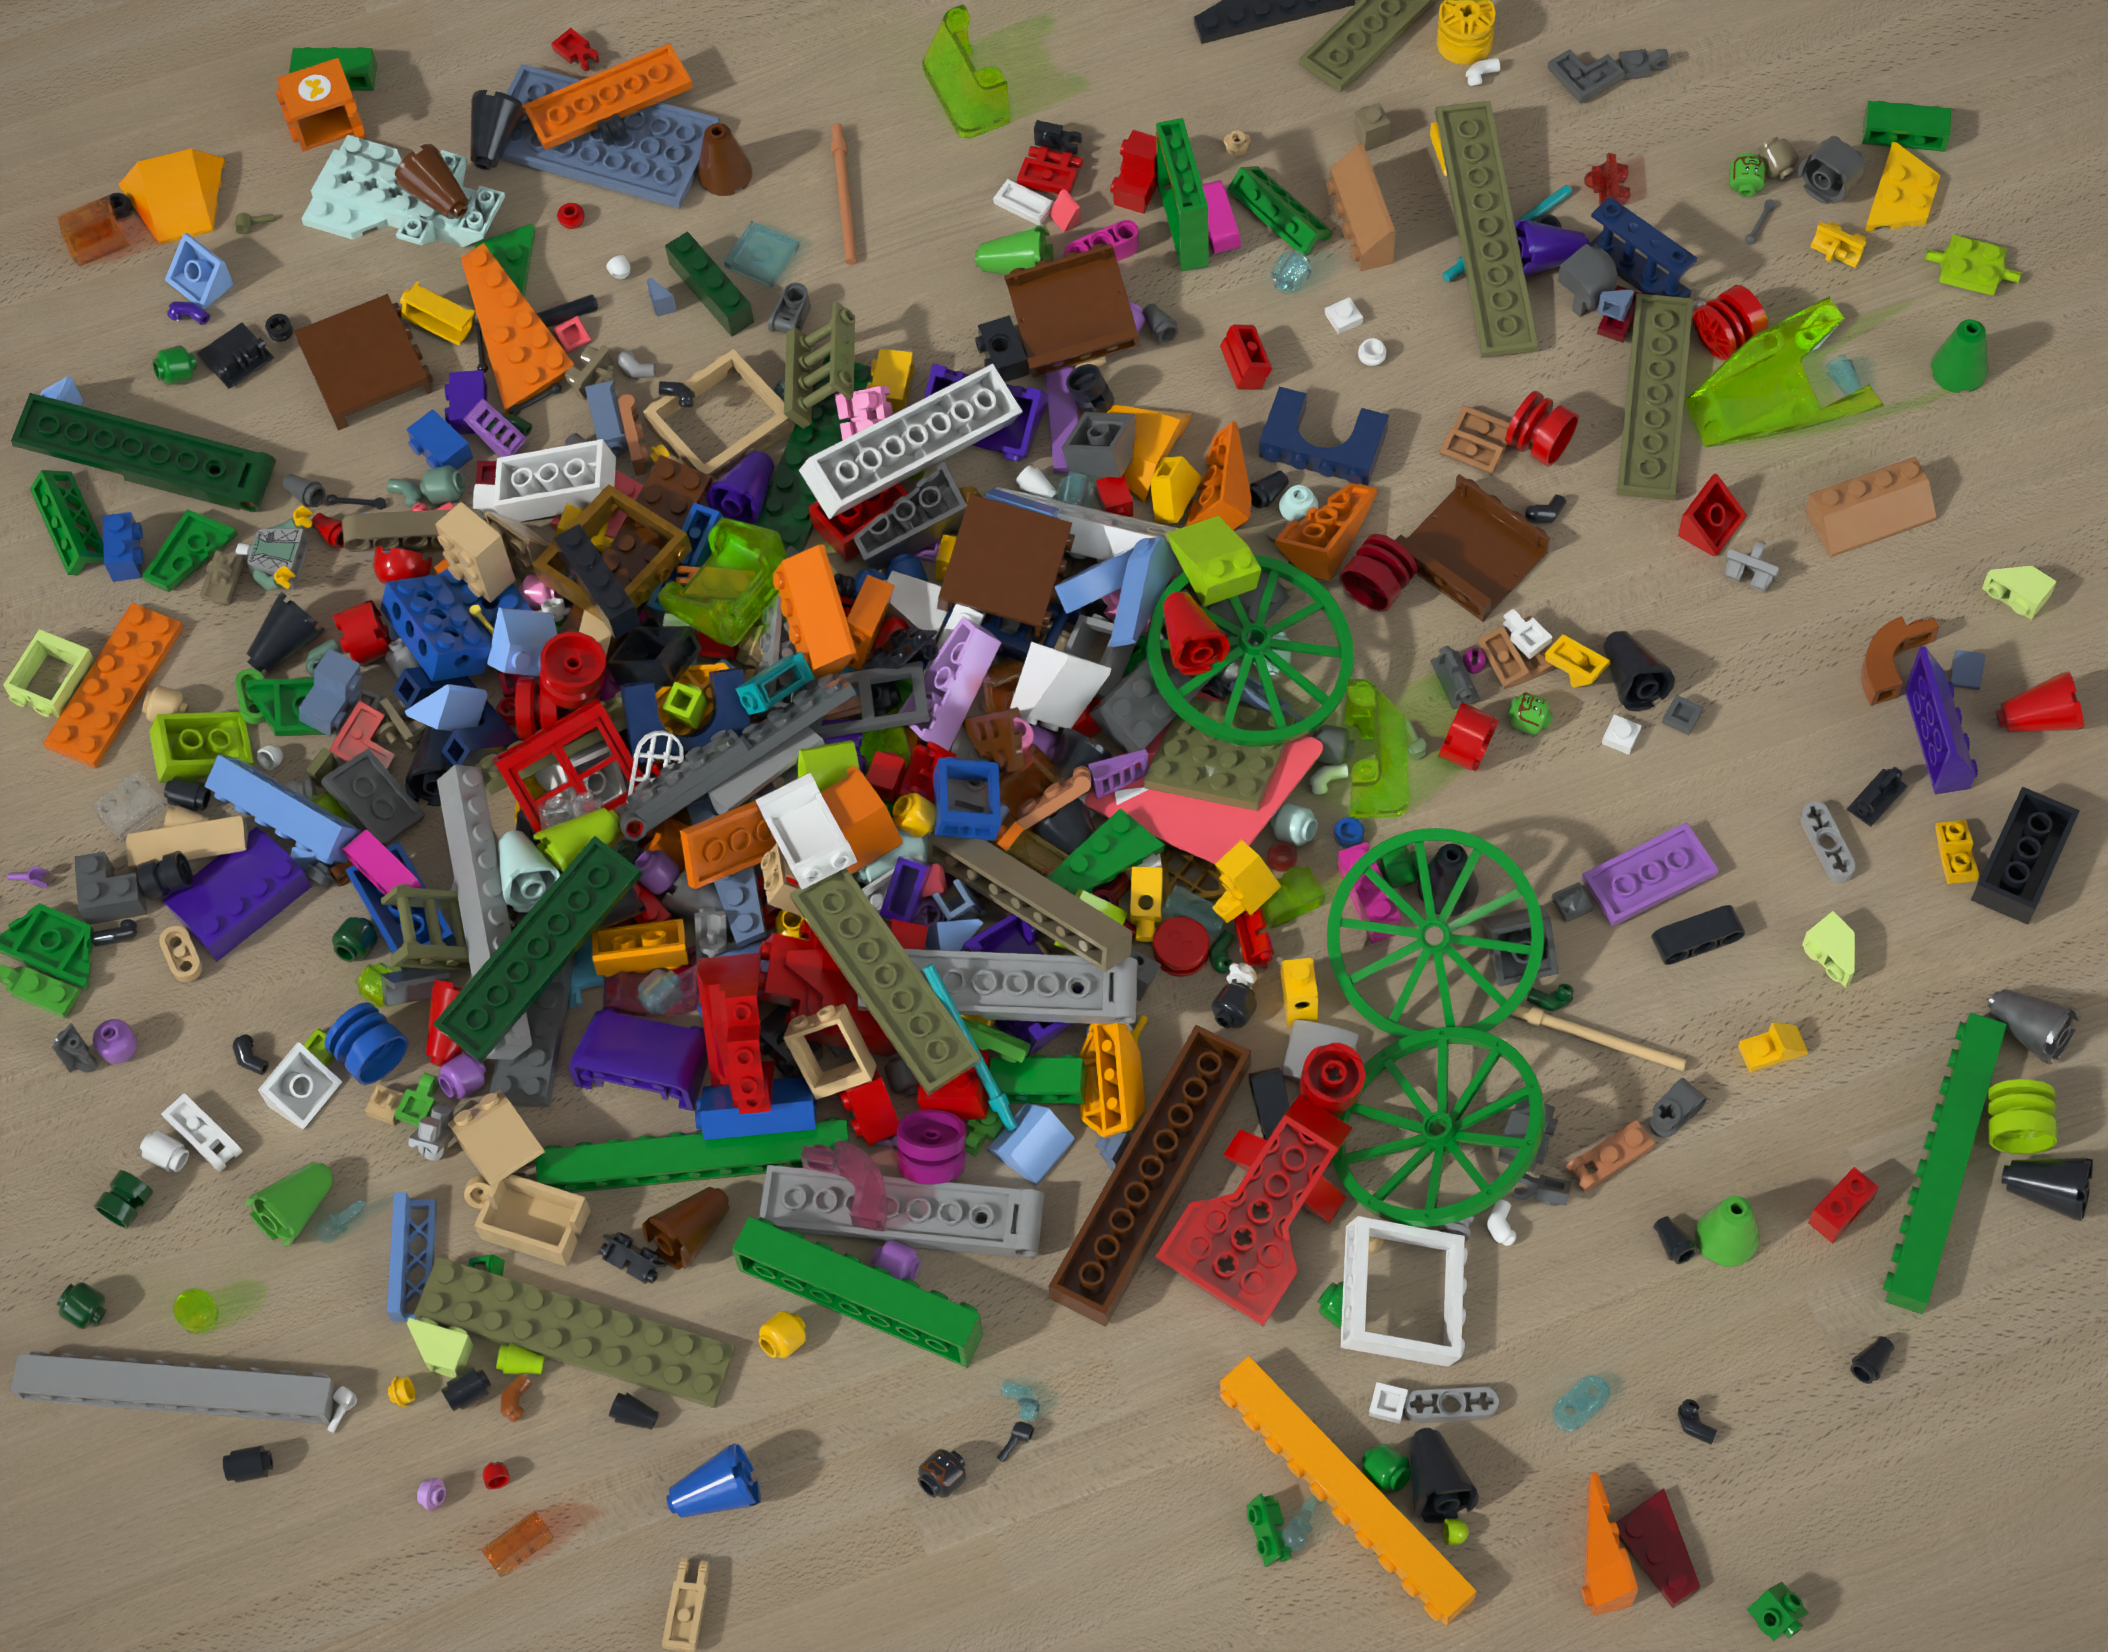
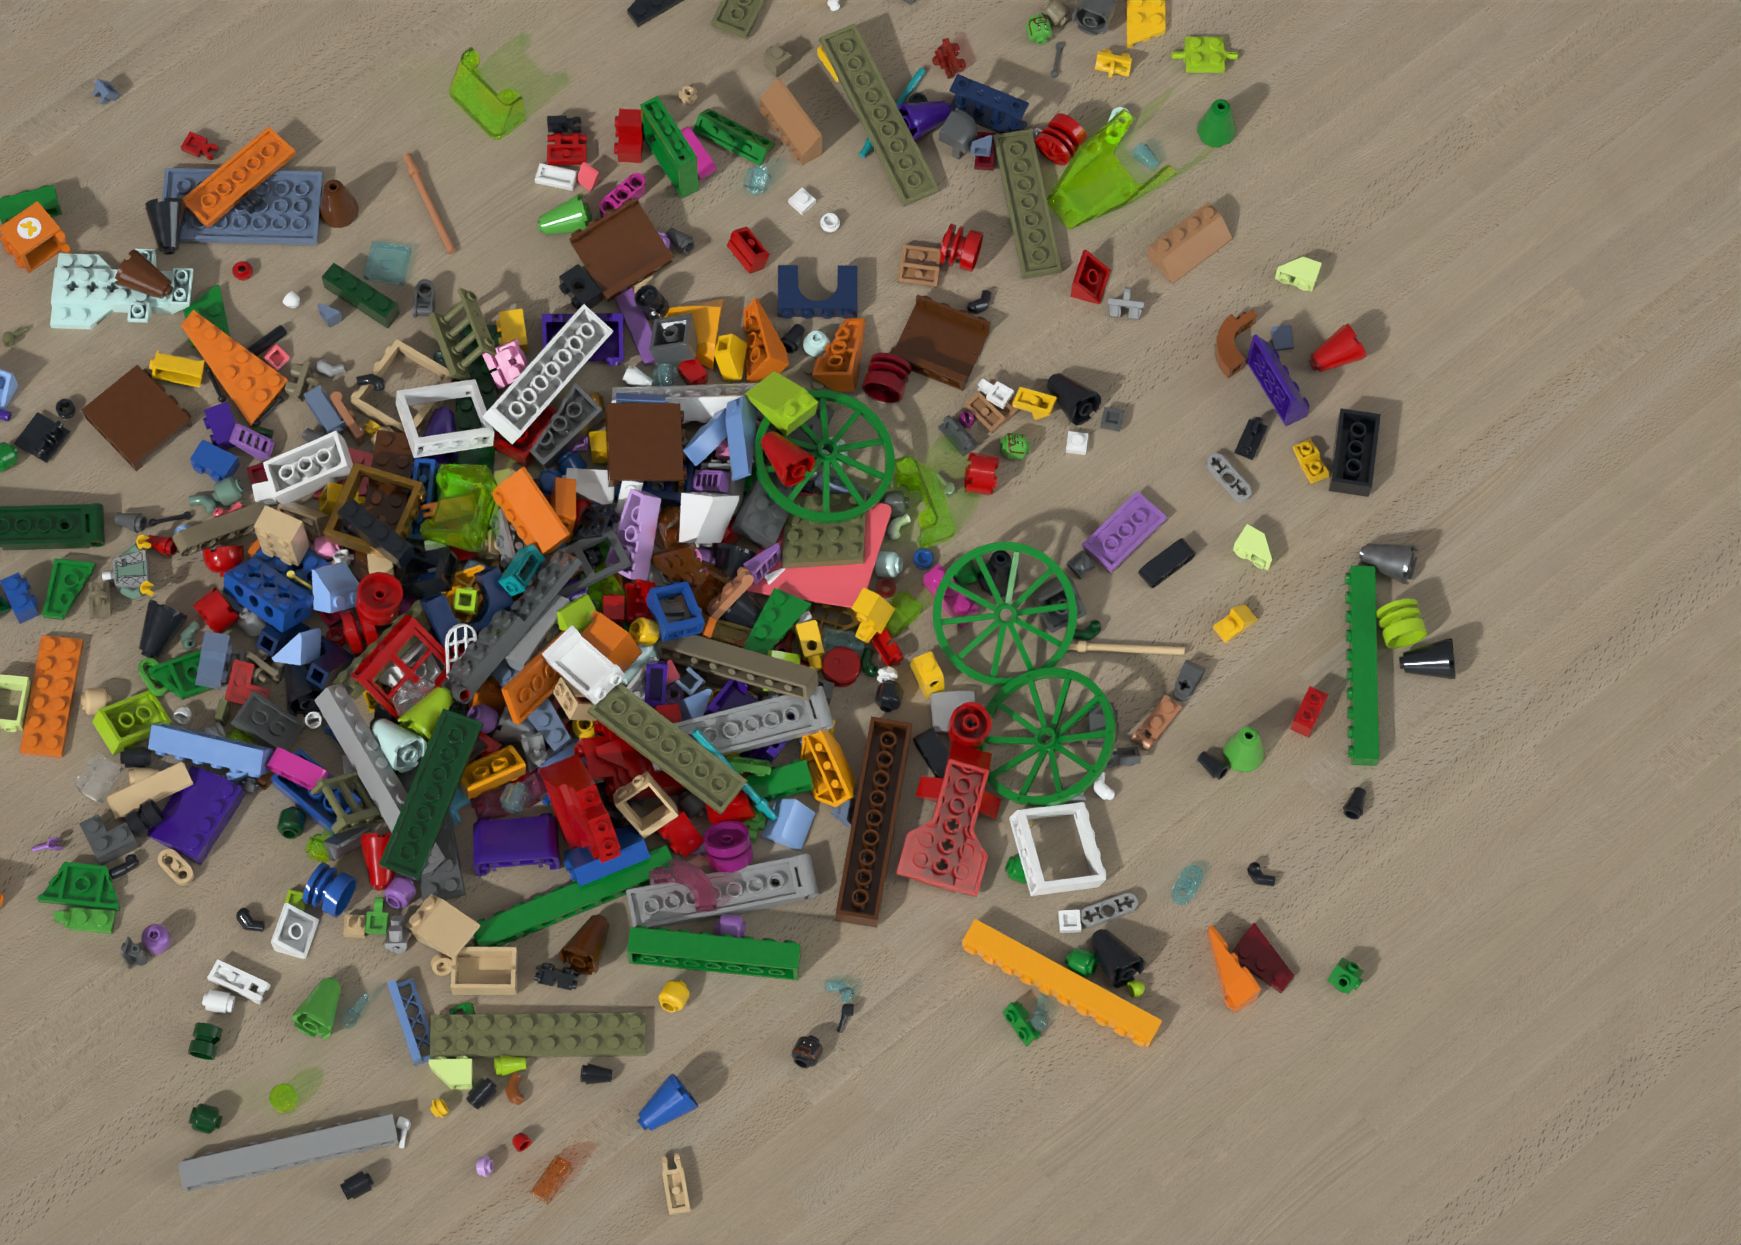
camera: 25 degrees left, 5 degrees up
(434, 806) = (311, 716): none -> white hinge
(751, 493) = (450, 441): none -> white window
(1088, 643) = (722, 481): none -> medium lavender slope

